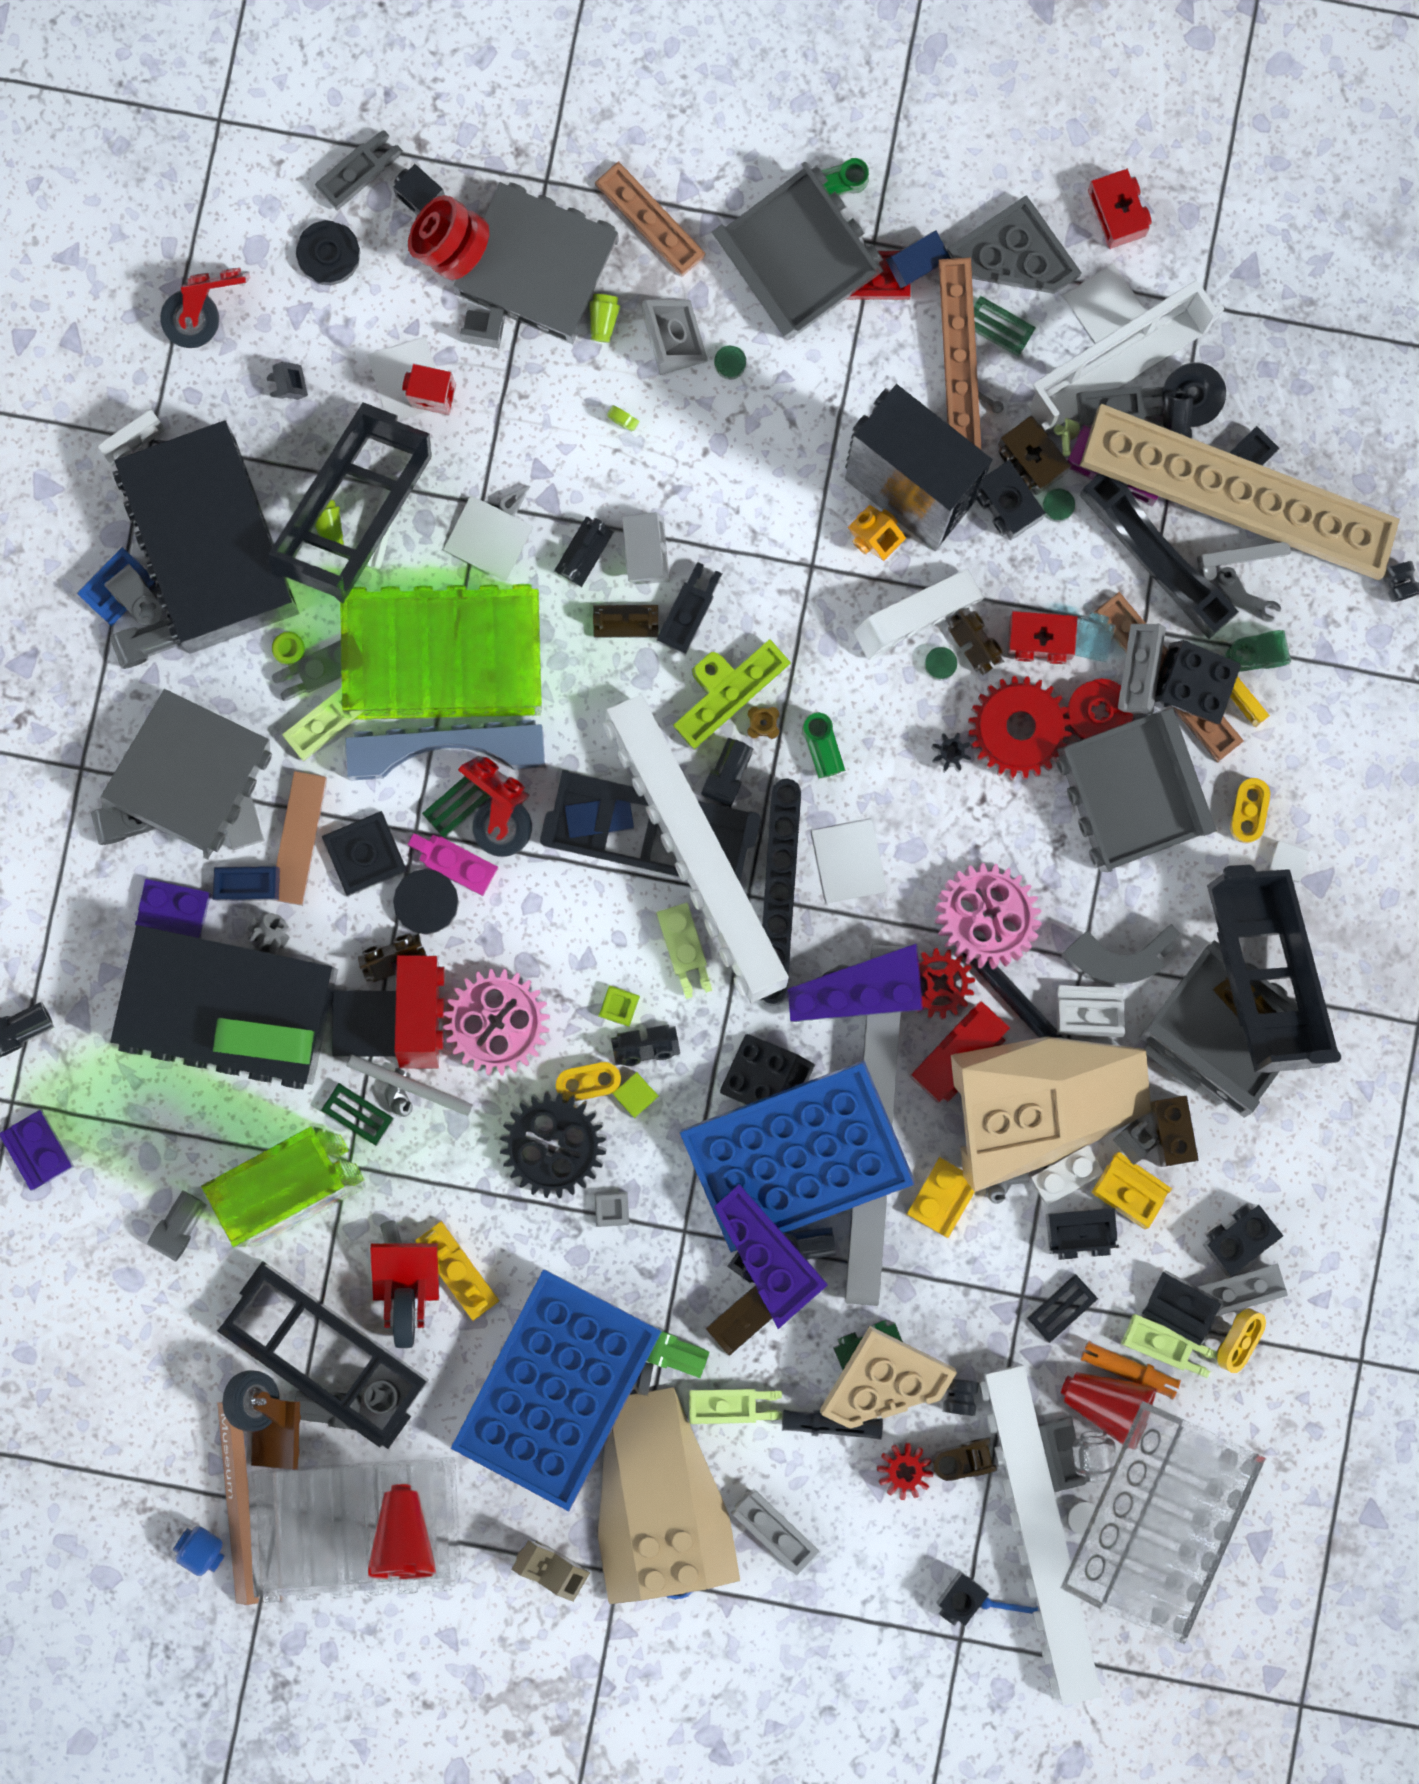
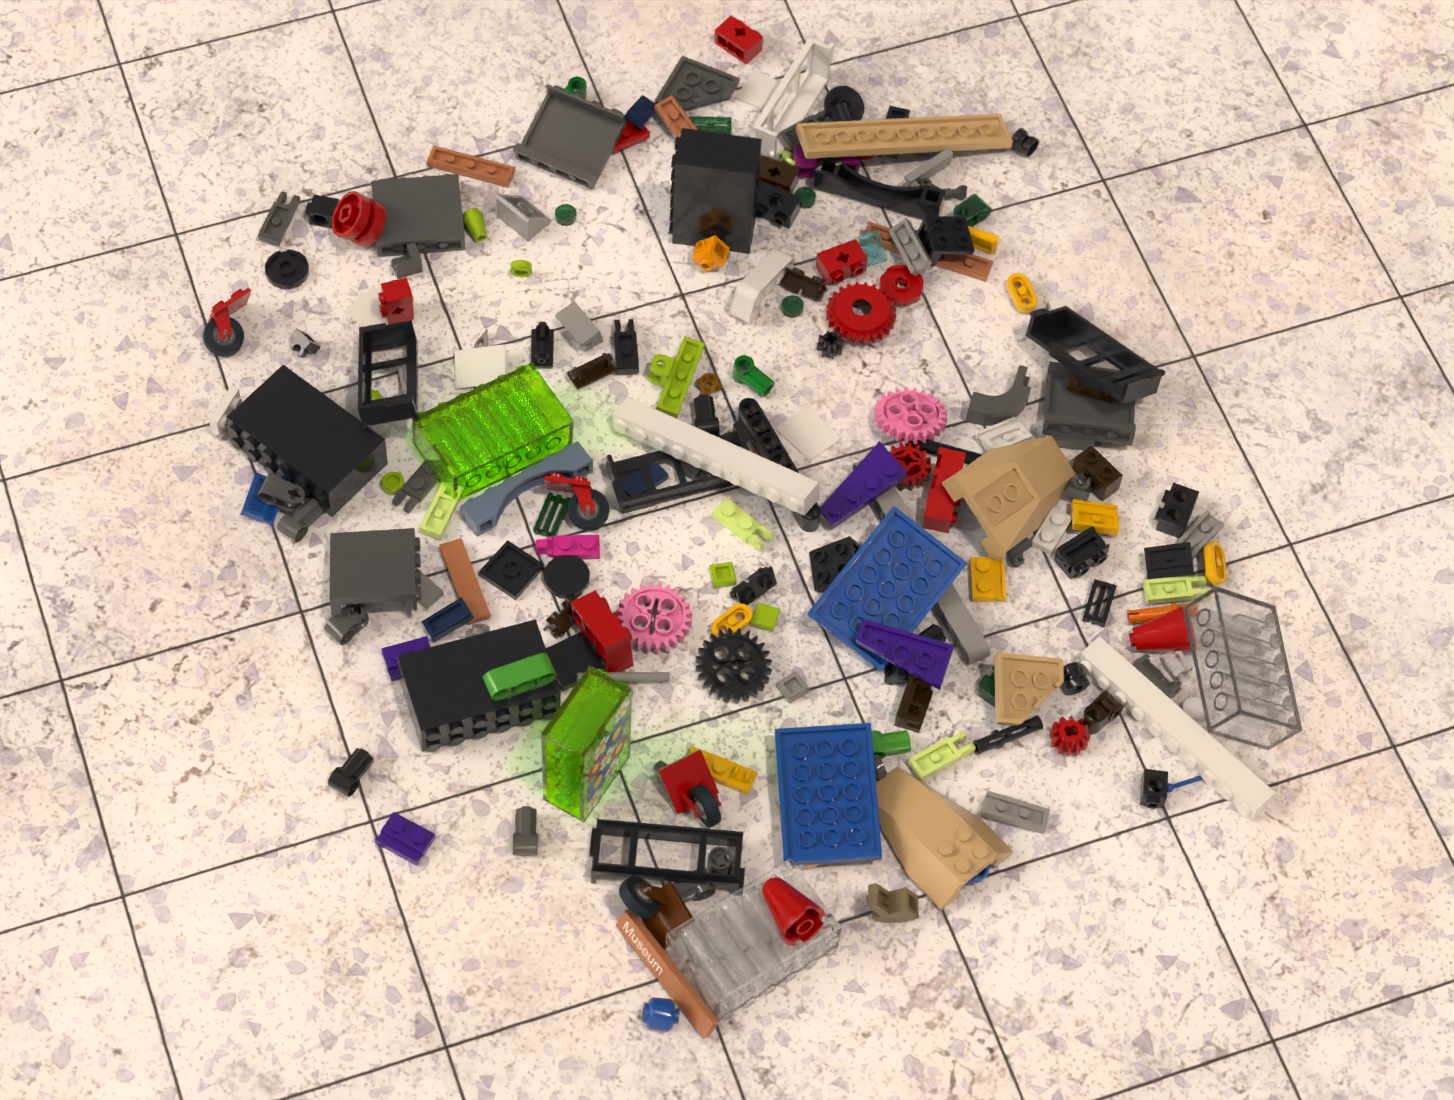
camera: 30 degrees left, 25 degrees down
(1135, 790) = (951, 309): dark grey panel -> none

